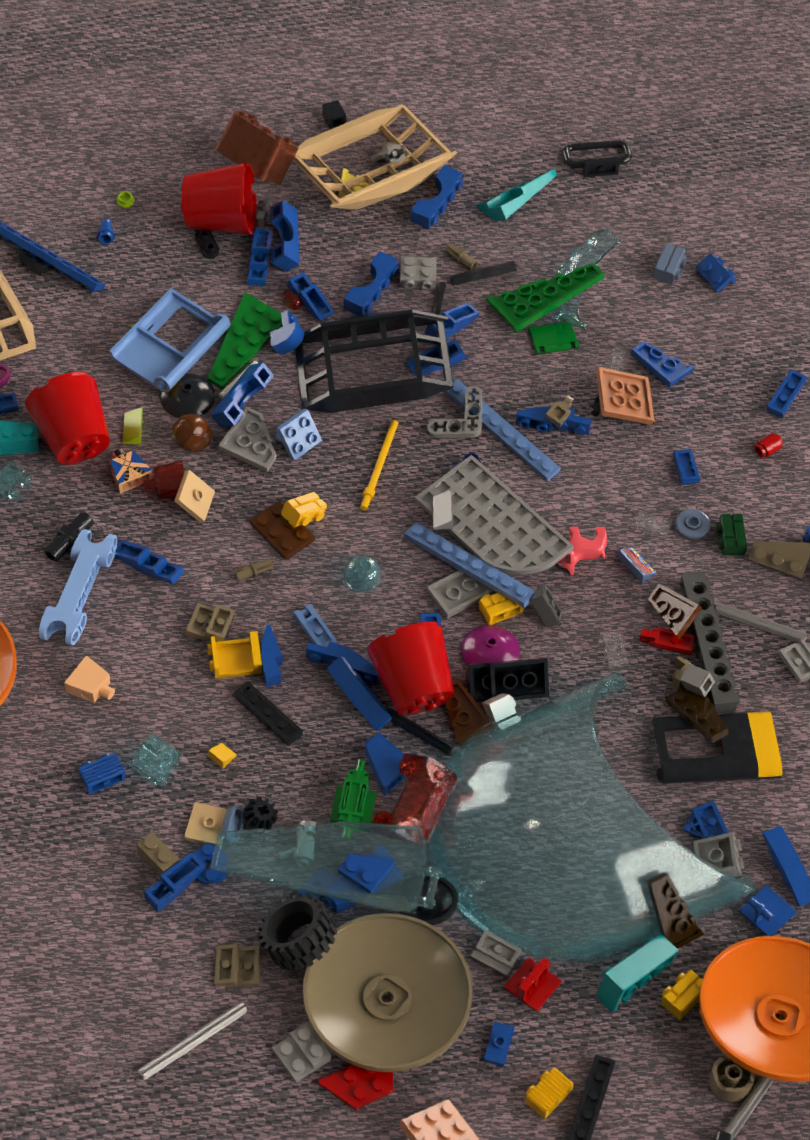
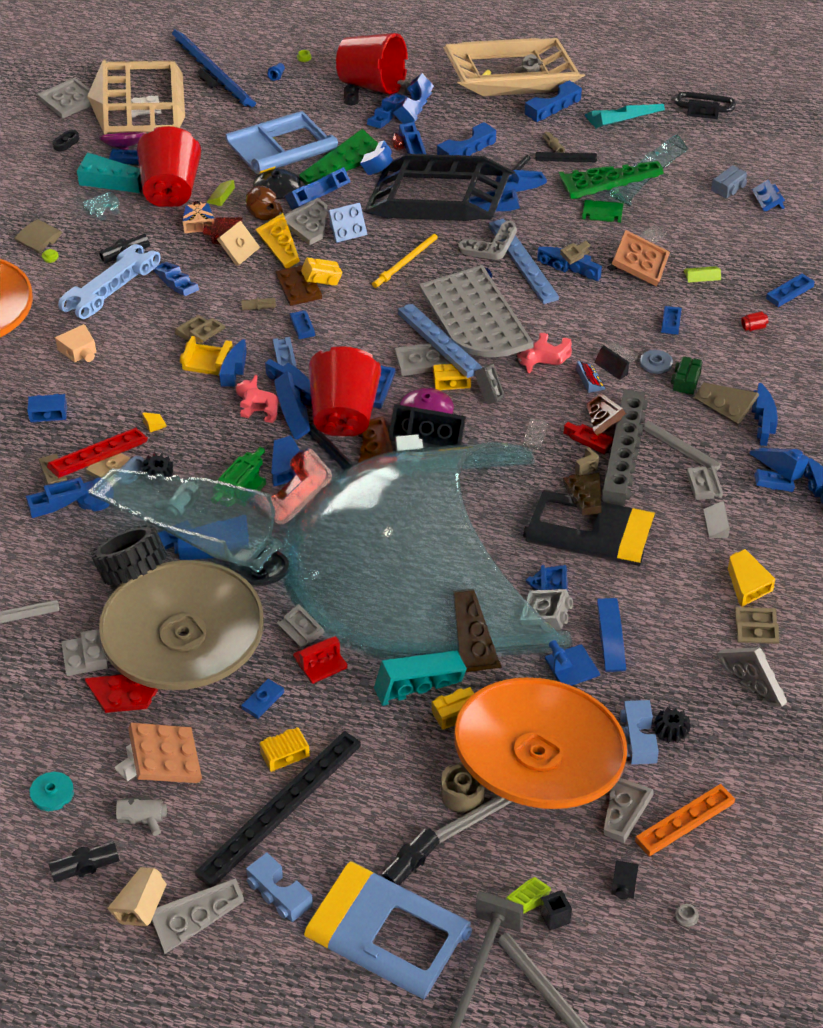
camera: 25 degrees right, 10 degrees down
(156, 760) = (96, 409): clear light blue plate -> none
(191, 815) = (96, 452): none -> red tile
(230, 474) = (279, 240): none -> yellow wing
(237, 966) = (71, 574): dark tan slope -> none
(252, 144) = (422, 36): copper windscreen -> none
(268, 713) = (209, 402): black plate -> none
(314, 583) = (302, 324): none -> blue plate
(318, 696) = (257, 400): none -> coral animal
(333, 114) = (498, 33): black brick -> none
(362, 573) = (346, 327): clear light blue cylinder -> none
(365, 871) = (216, 526): blue wing -> none
(418, 272) = (510, 145): light grey plate -> none
(442, 511) = (436, 296): light grey slope -> none
(652, 540) = (612, 363): none -> black slope
(667, 369) = (686, 247): blue wing -> none
(691, 395) = (703, 274): none -> lime slope
(697, 680) = (594, 467): light grey brick -> none

